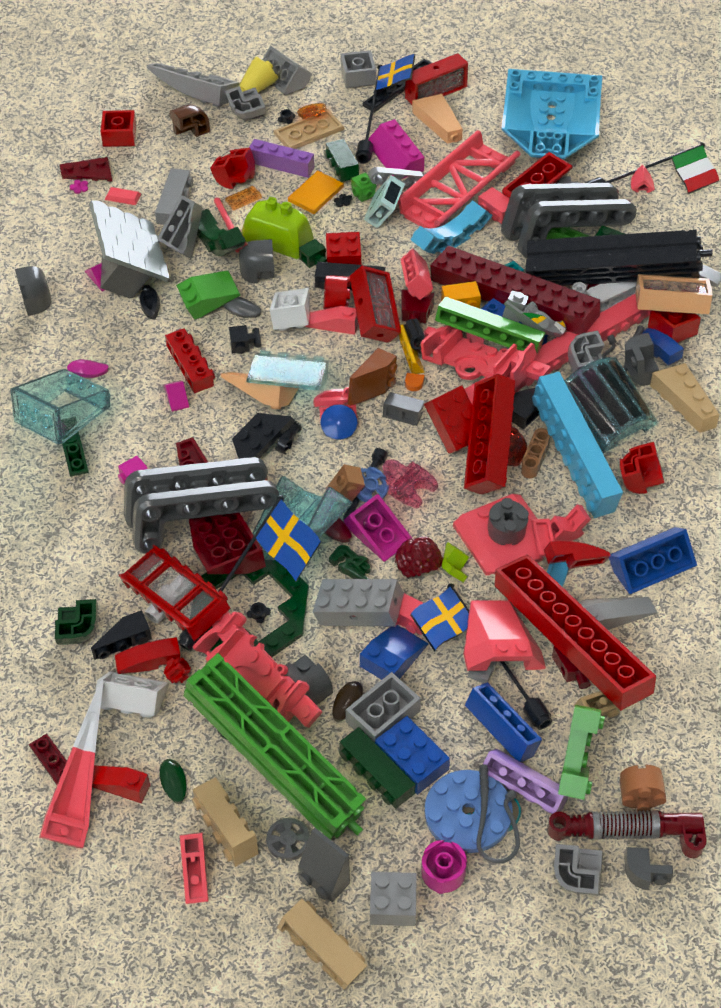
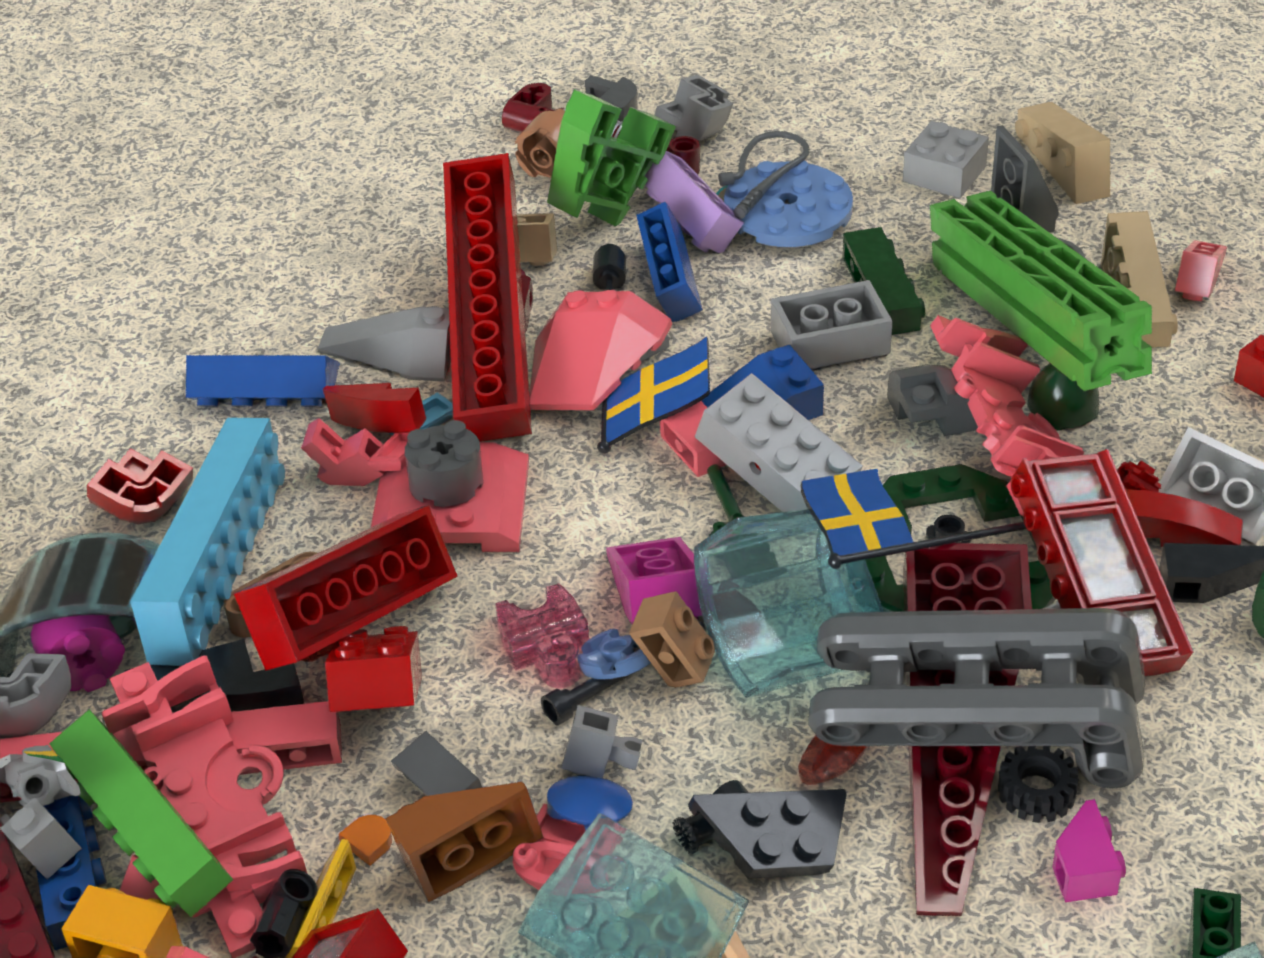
camera: 150 degrees left, 10 degrees down
(173, 780) = (1196, 364): dark green arm -> none
(346, 697) = (871, 370): dark brown arm -> none
(350, 439) = (594, 743): none -> light grey brick
(414, 753) = (817, 260): blue brick -> none
(418, 556) = (623, 489): dark red hair -> none
(443, 866) = (863, 160): dark pink brick -> none
(453, 561) = (561, 483): lime slope -> none

